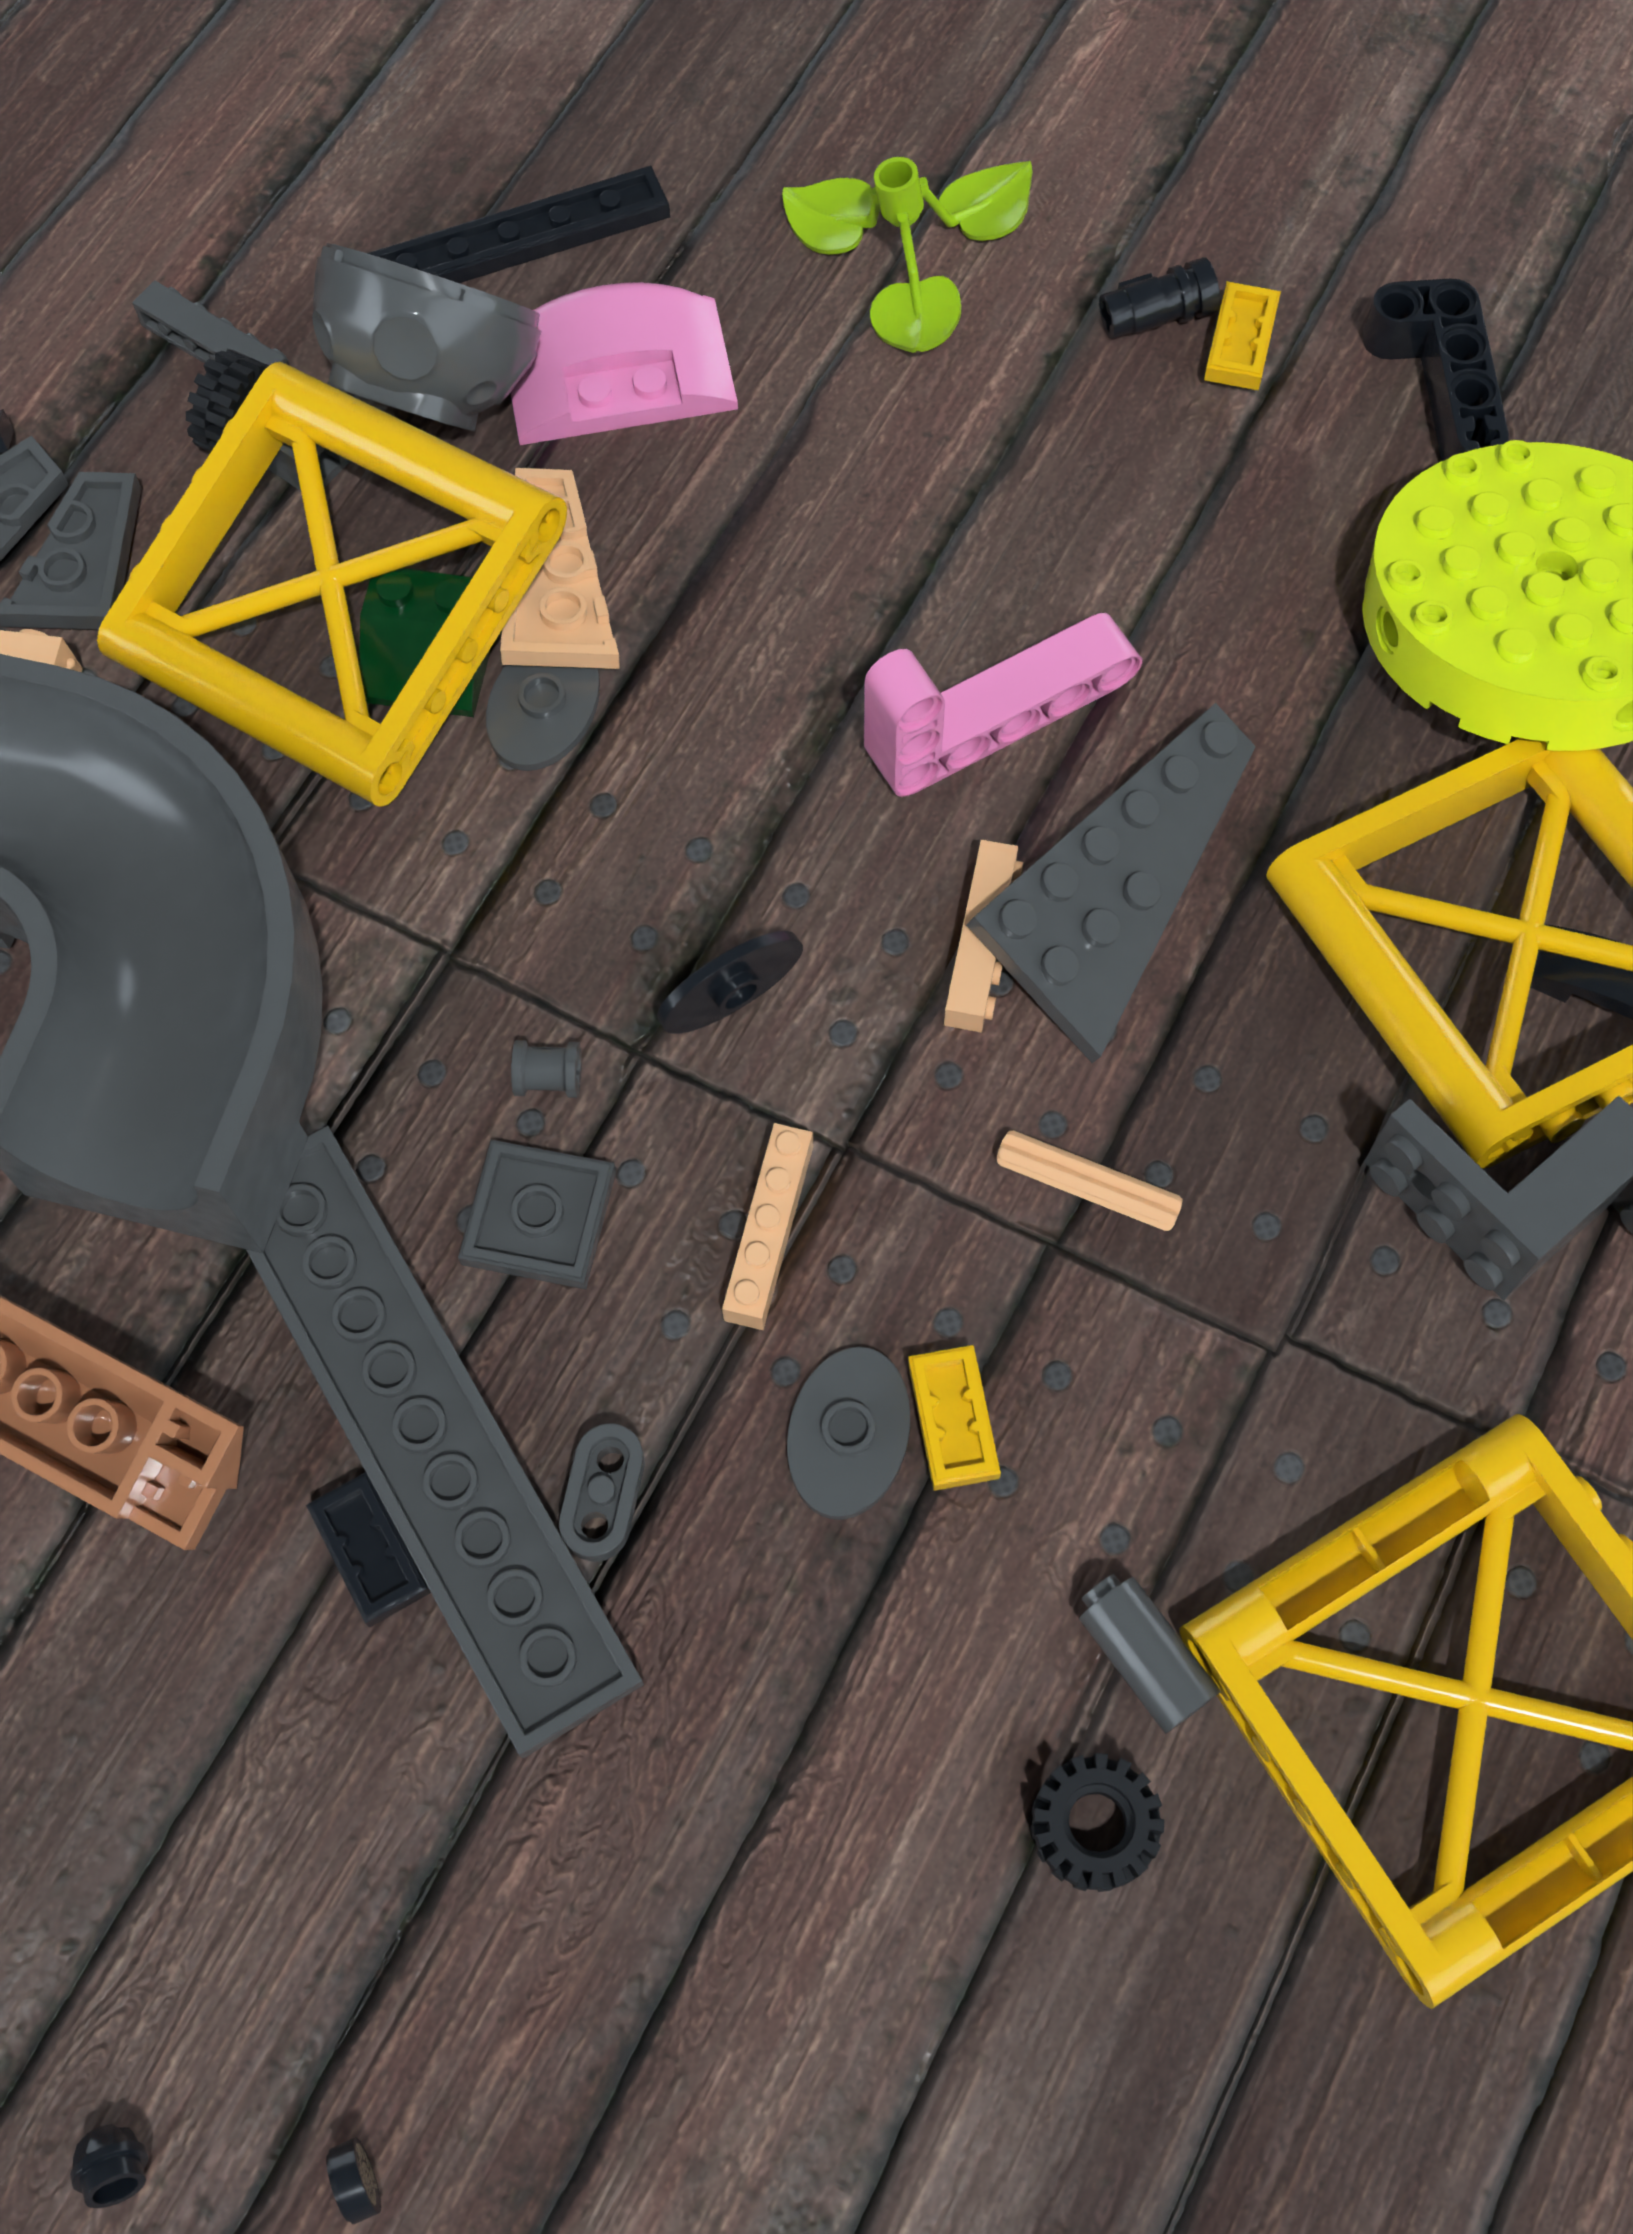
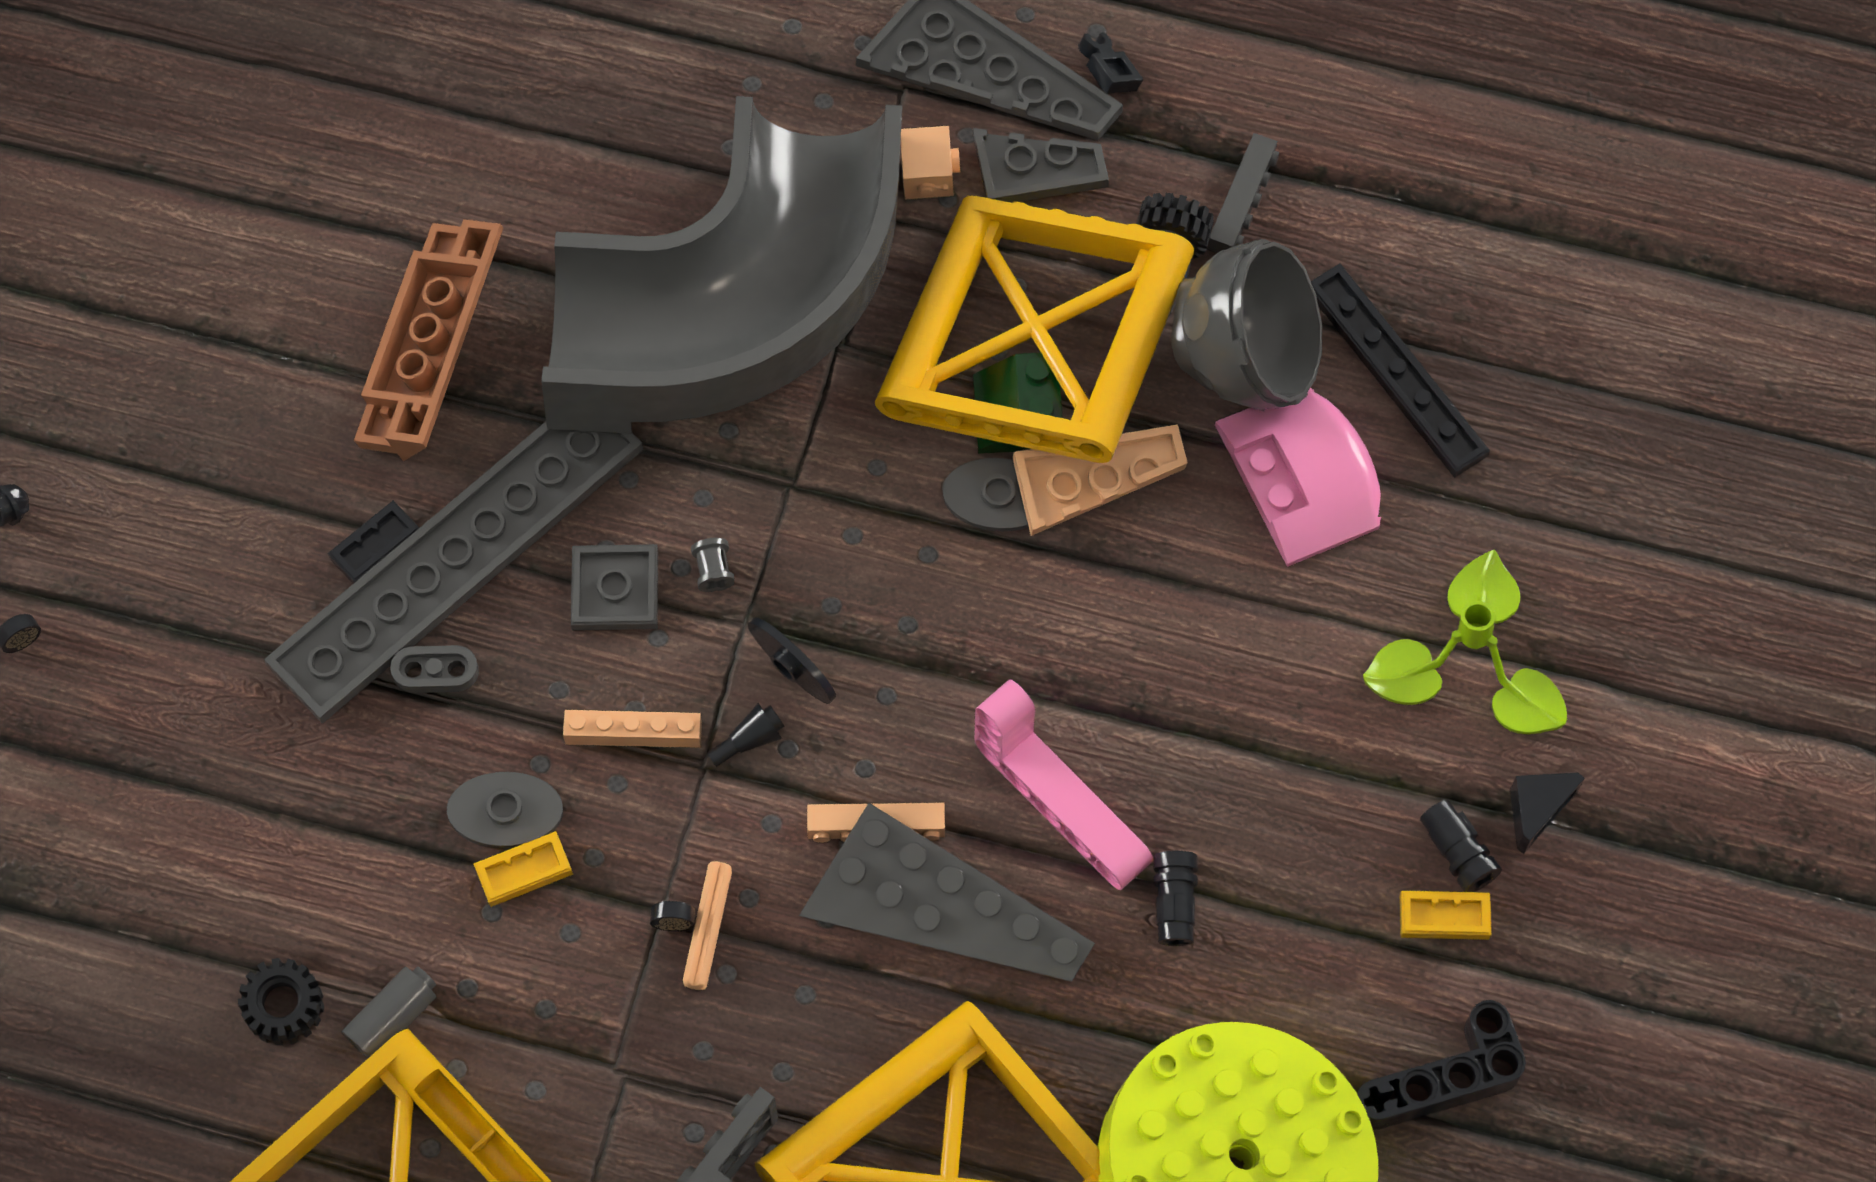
camera: 75 degrees right, 0 degrees up
(813, 1058) = (755, 730): none -> black cone
(1071, 1219) = (672, 916): none -> black tile
(1129, 213) = (1538, 801): none -> black slope
(1167, 605) = (1175, 896): none -> black axle

